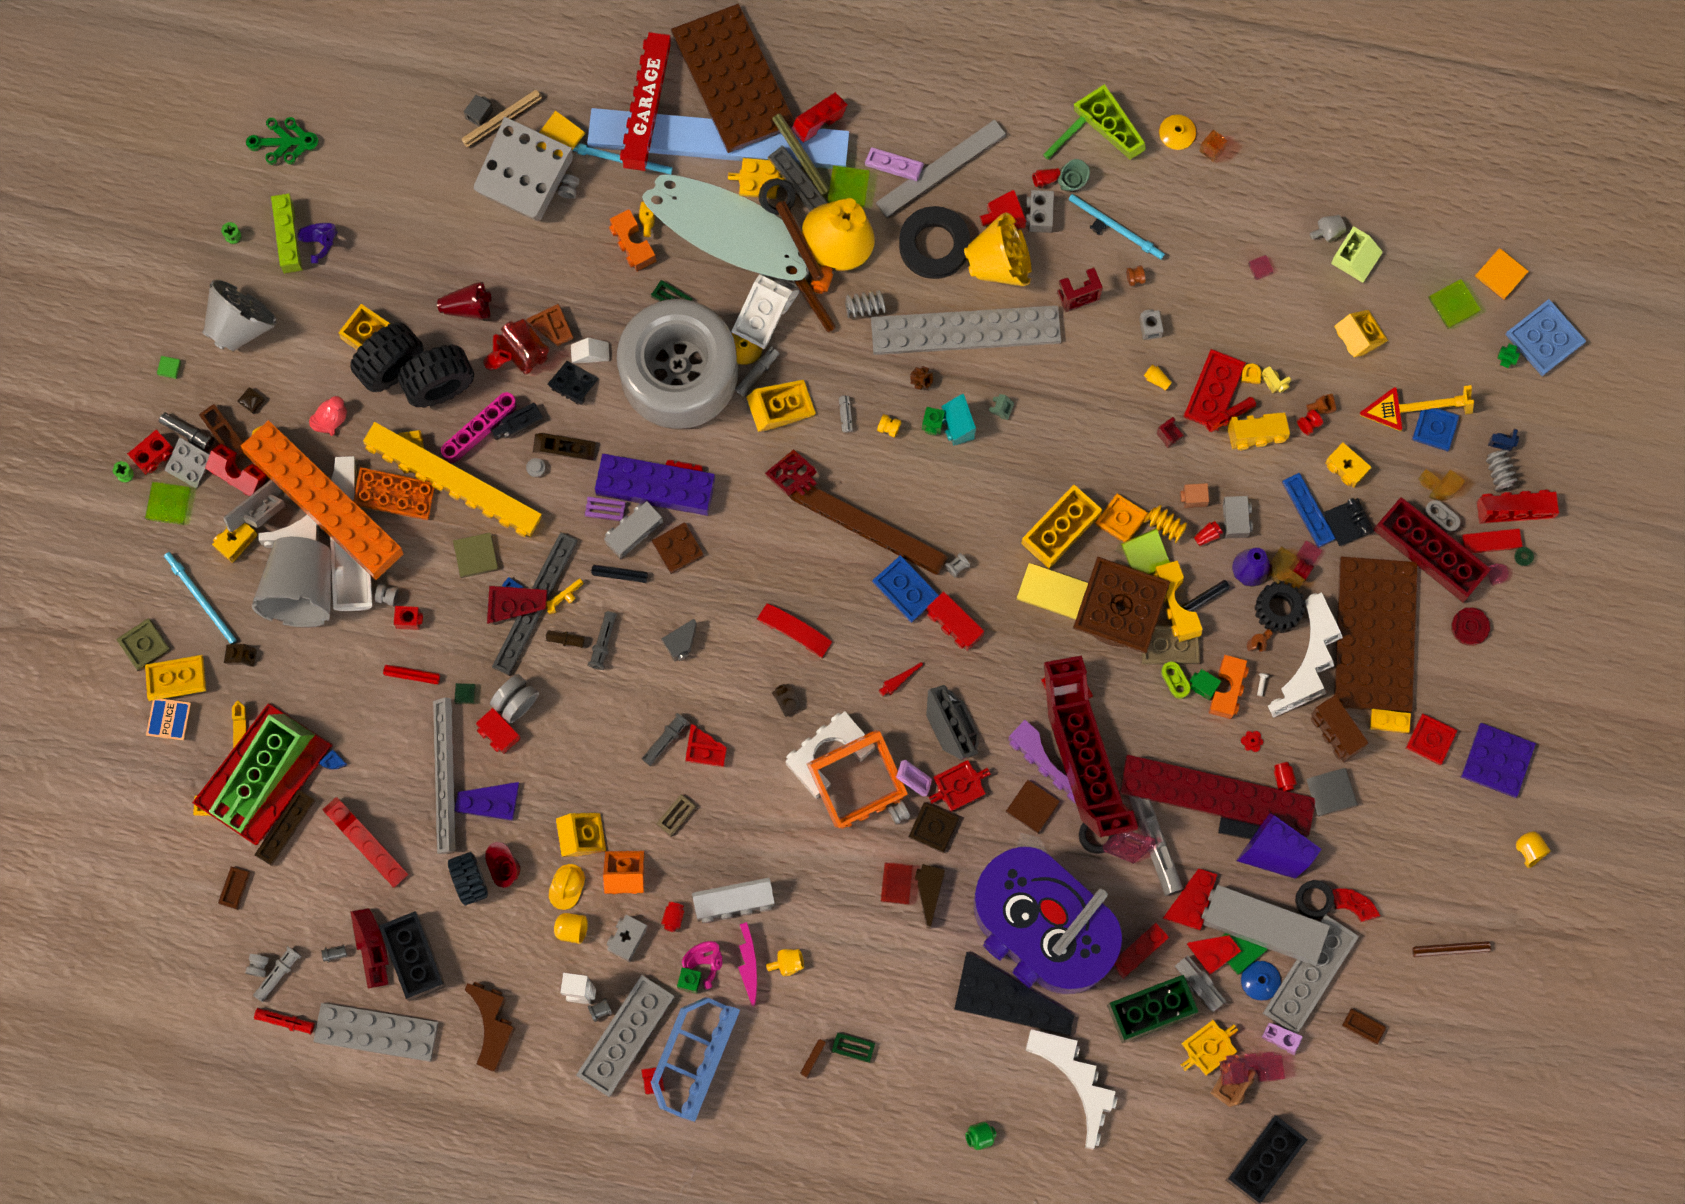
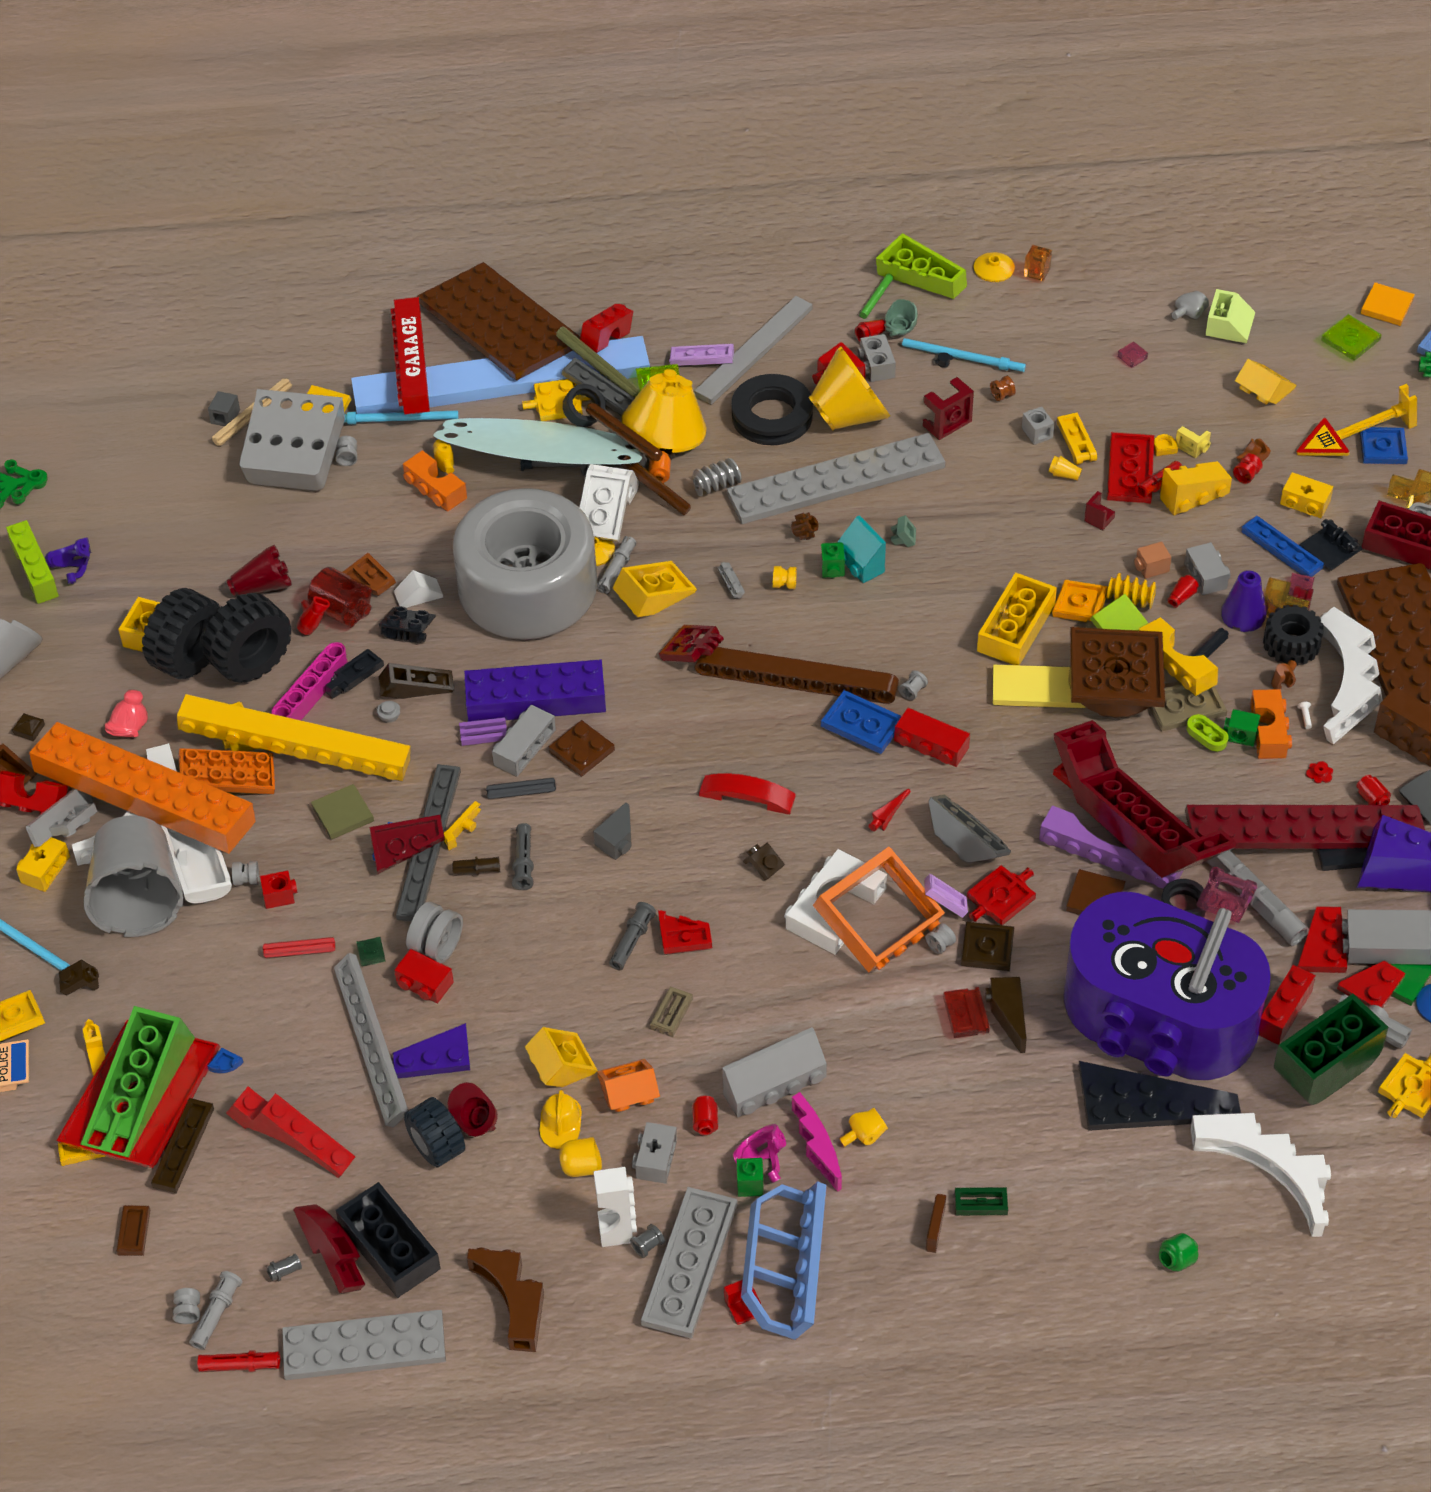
camera: 15 degrees left, 25 degrees down
(1179, 346) = (1076, 438): none -> yellow plate

